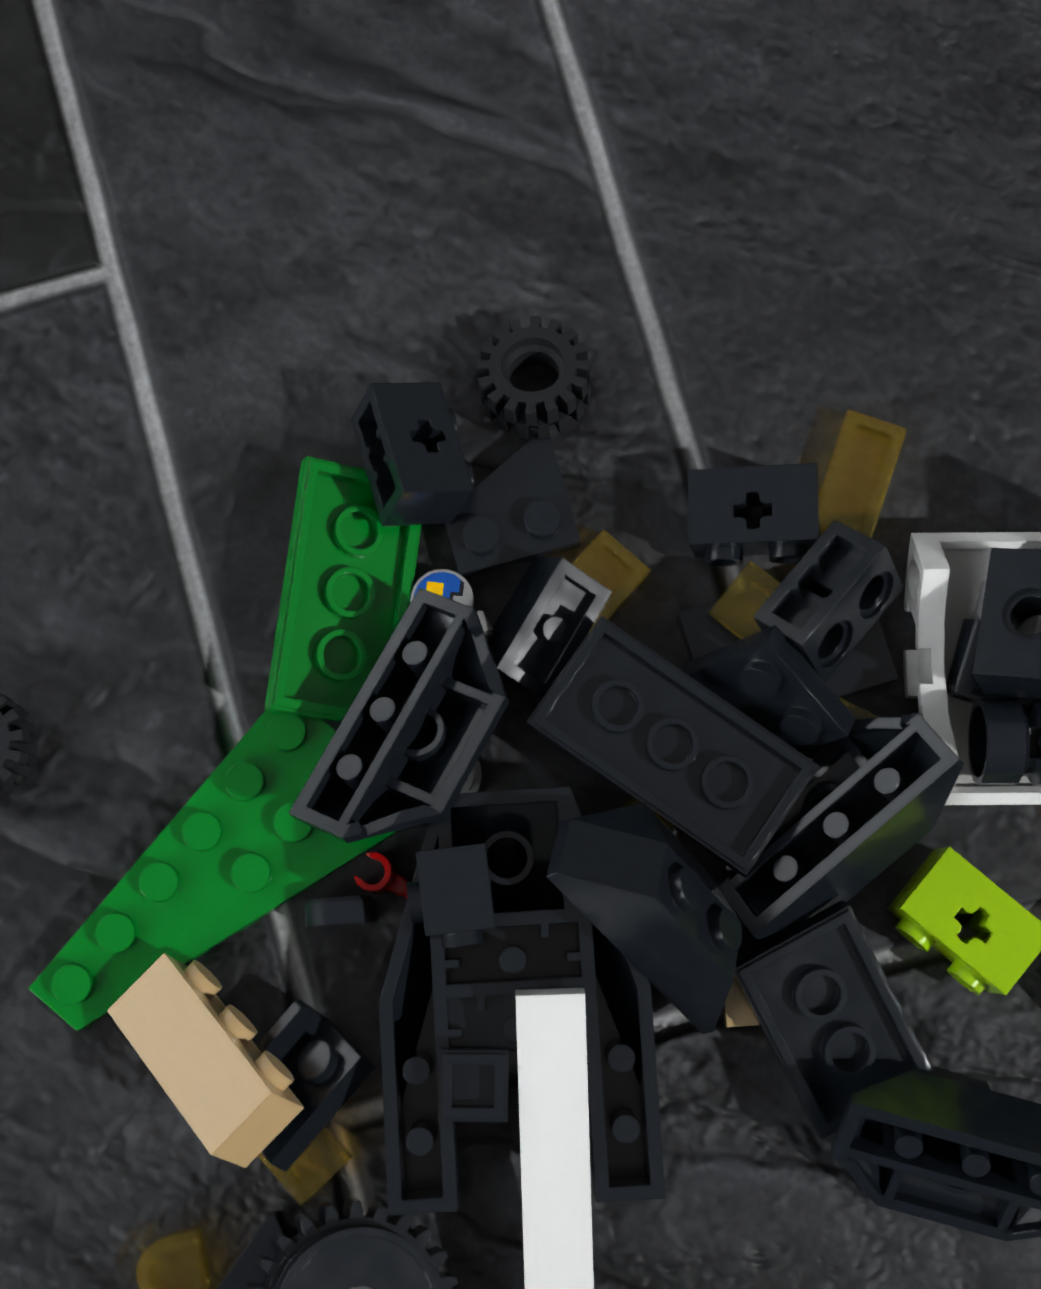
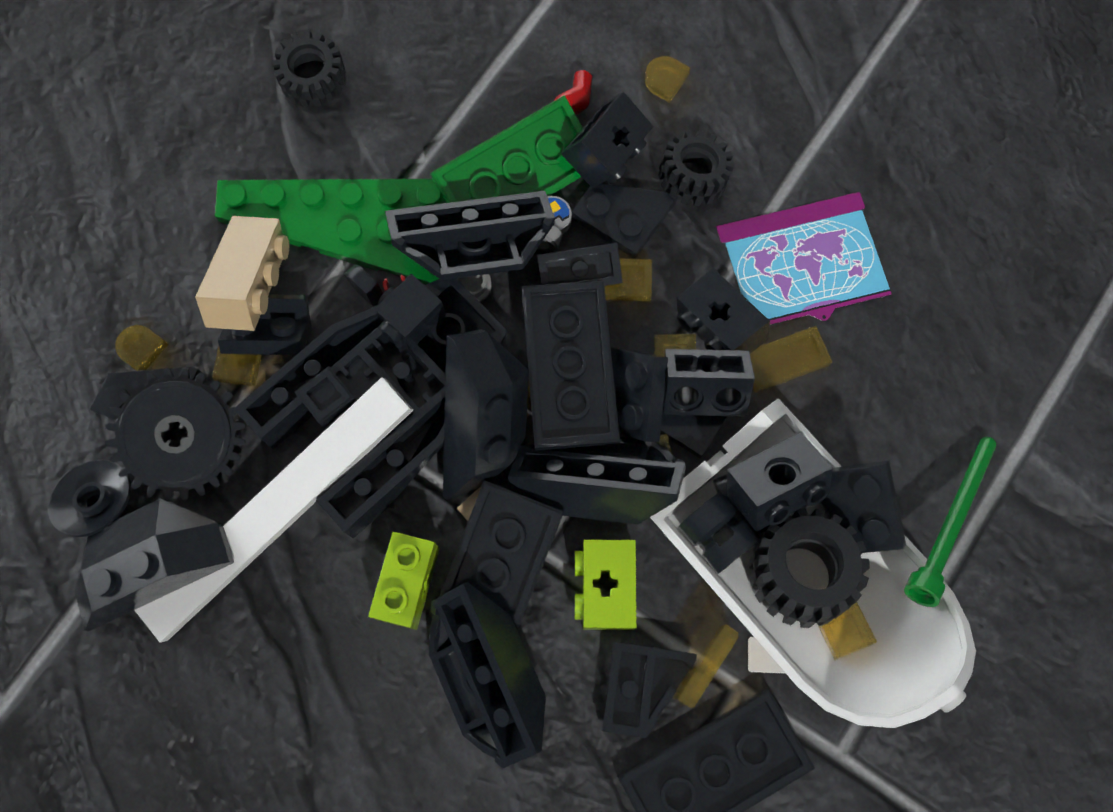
camera: 50 degrees right, 5 degrees down
(309, 433) = (580, 93): none -> red arm
(374, 308) = (665, 76): none -> clear yellow tile
(749, 348) = (806, 259): none -> sticker
(774, 1167) = (404, 580): none -> lime brick

